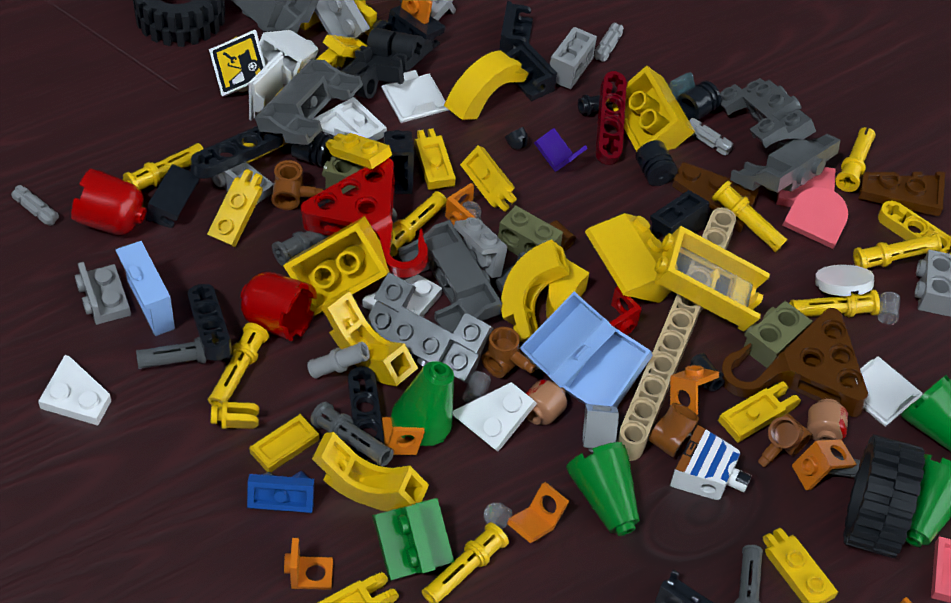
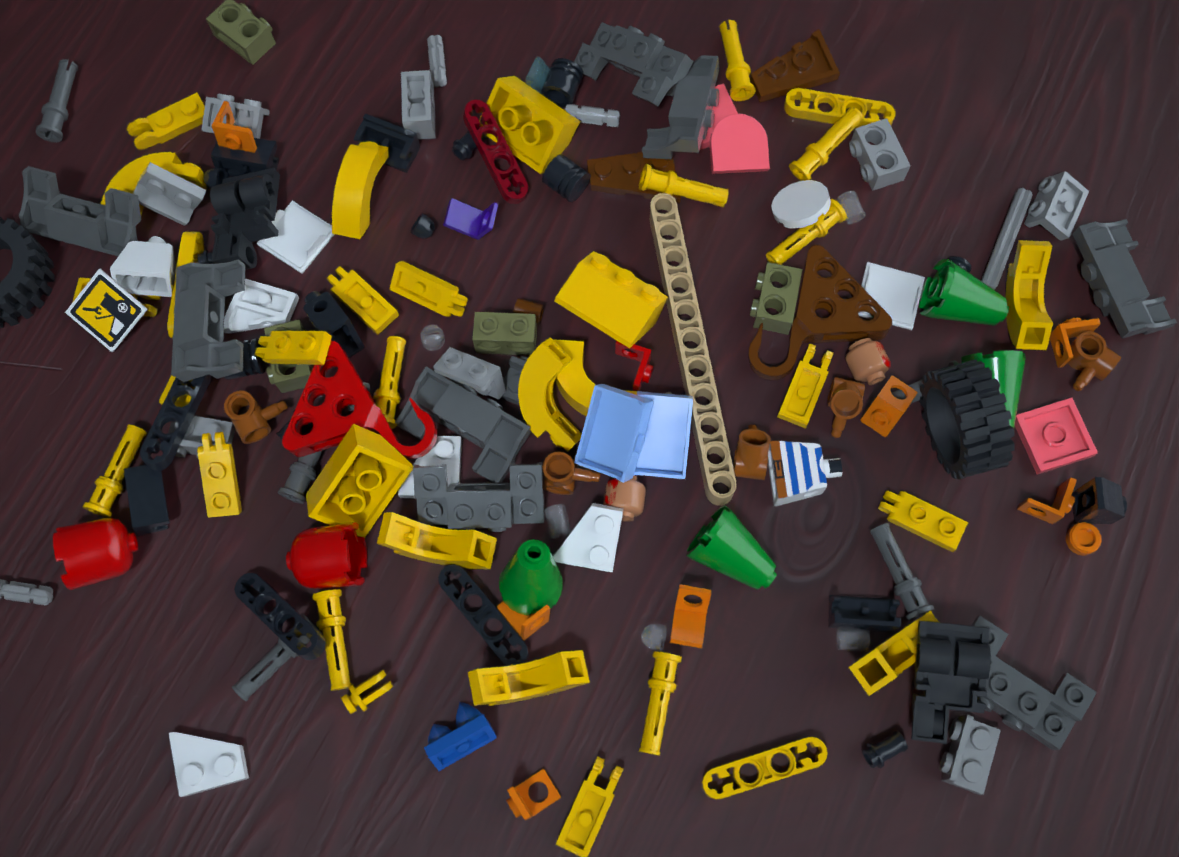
camera: 25 degrees left, 20 degrees up
(104, 293) = (155, 643): light grey bracket -> none
(147, 287) = (194, 620): light blue container -> none
(267, 84) = (153, 320): white piece -> none
(284, 443) = (427, 686): yellow tile -> none
(338, 360) = (422, 577): light grey pin -> none
(343, 45) = (195, 225): yellow tile -> none
(377, 451) = (471, 643): dark grey pin -> none
(413, 539) = (604, 712): green bracket -> none
(454, 209) = (423, 349): orange bracket -> none
(515, 27) = (342, 100): black hinge -> none
(599, 425) = (689, 495): light grey brick -> none
(686, 211) = (623, 226): black hinge -> none
(689, 381) = (738, 400): orange bracket -> none
(702, 360) = (740, 374): black pin -> none
(710, 277) = (693, 284): yellow door -> none

